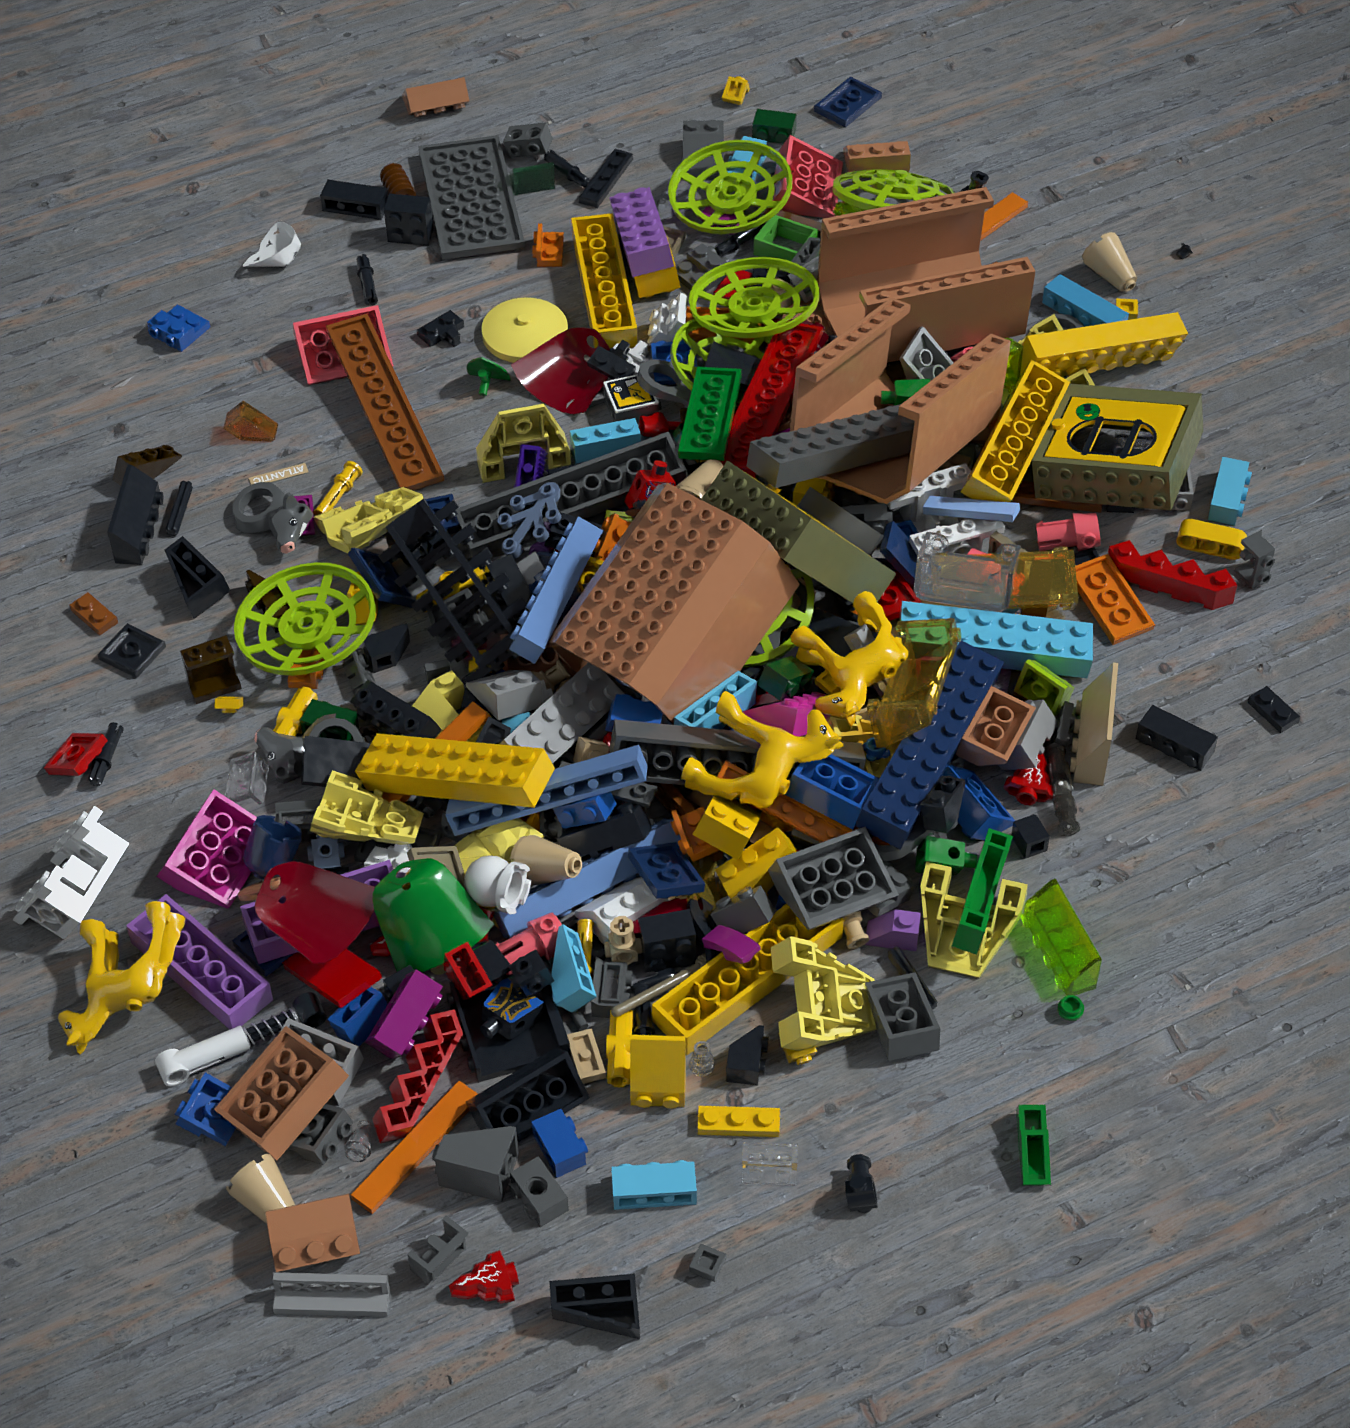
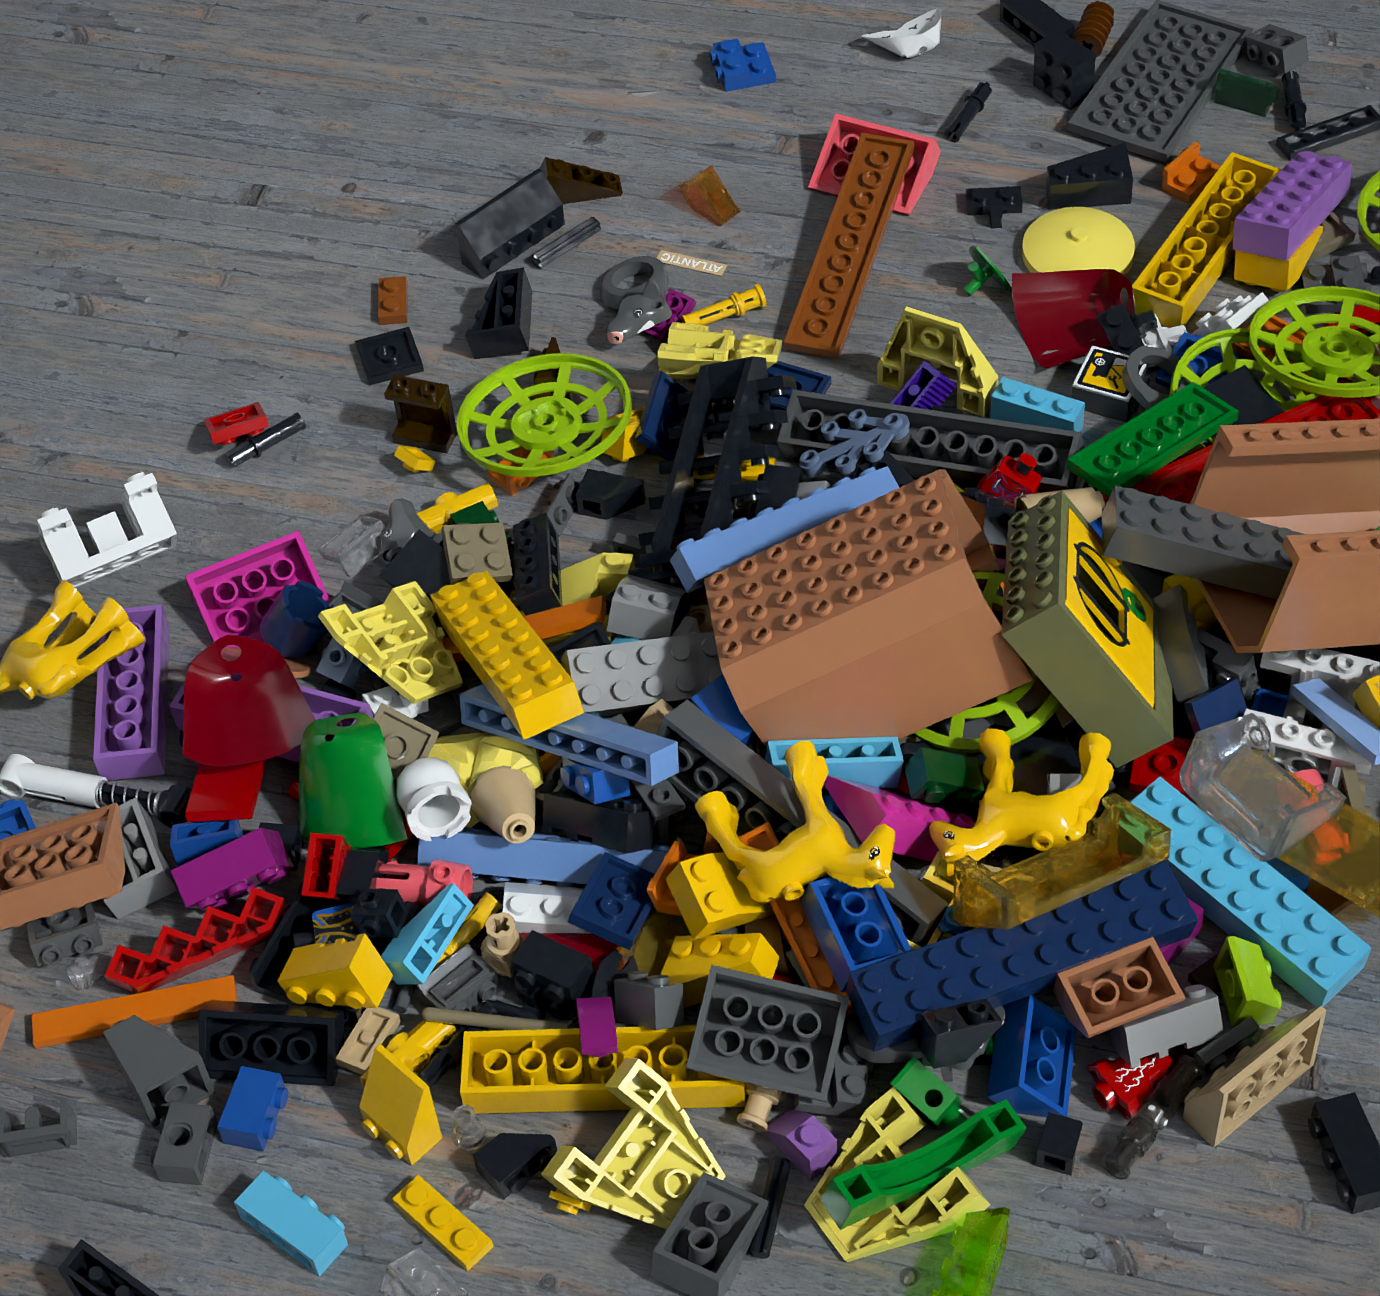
camera: 45 degrees right, 0 degrees up
(353, 728) = (476, 549): none -> dark tan plate
(488, 1280) = (56, 1196): red rock -> none
(494, 281) = (1091, 180): none -> black wedge
(538, 1028) = (336, 974): none -> yellow wedge
(656, 425) = (1106, 421): red piece -> none

